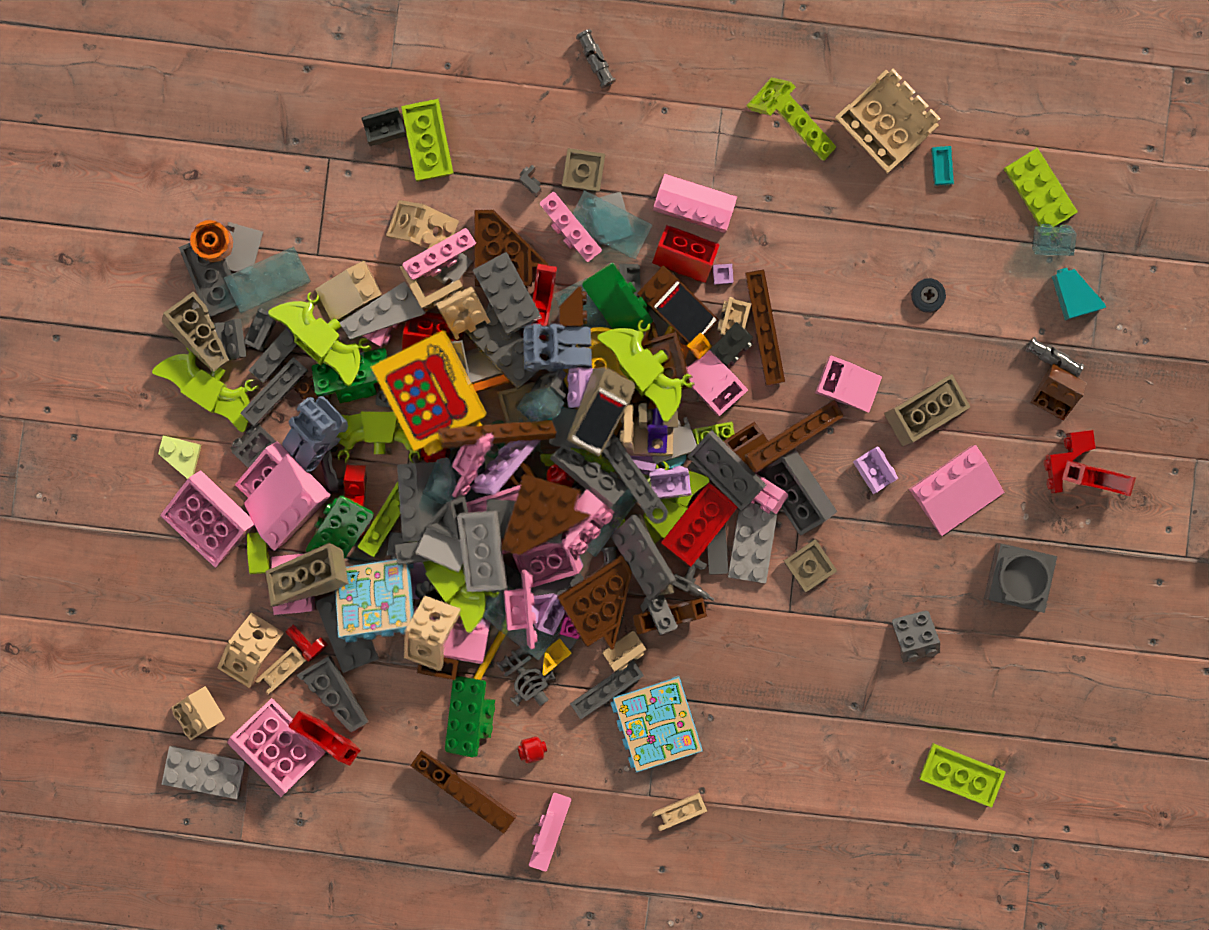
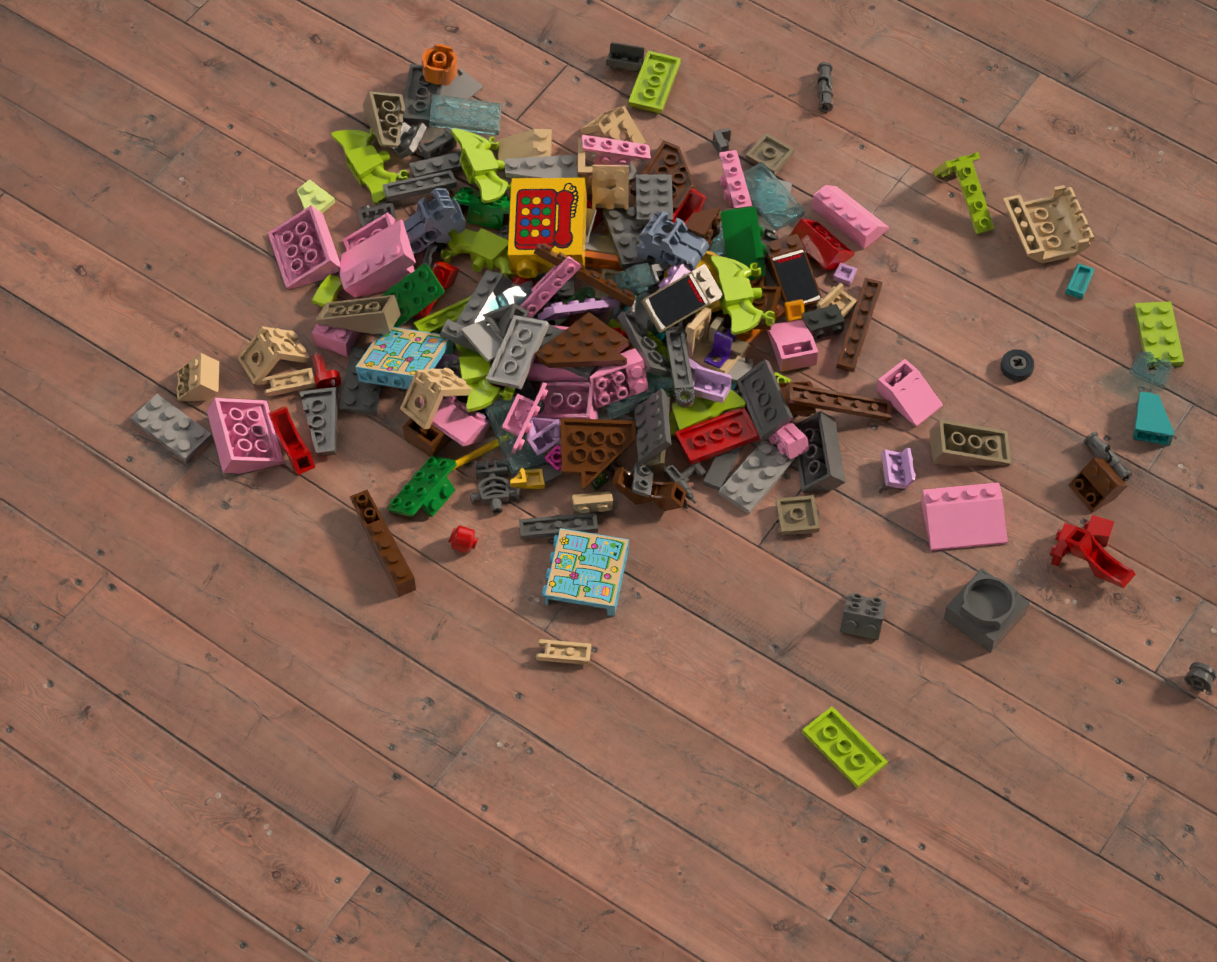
camera: 30 degrees right, 30 degrees down
(549, 833) = (435, 610): bright pink bracket -> none

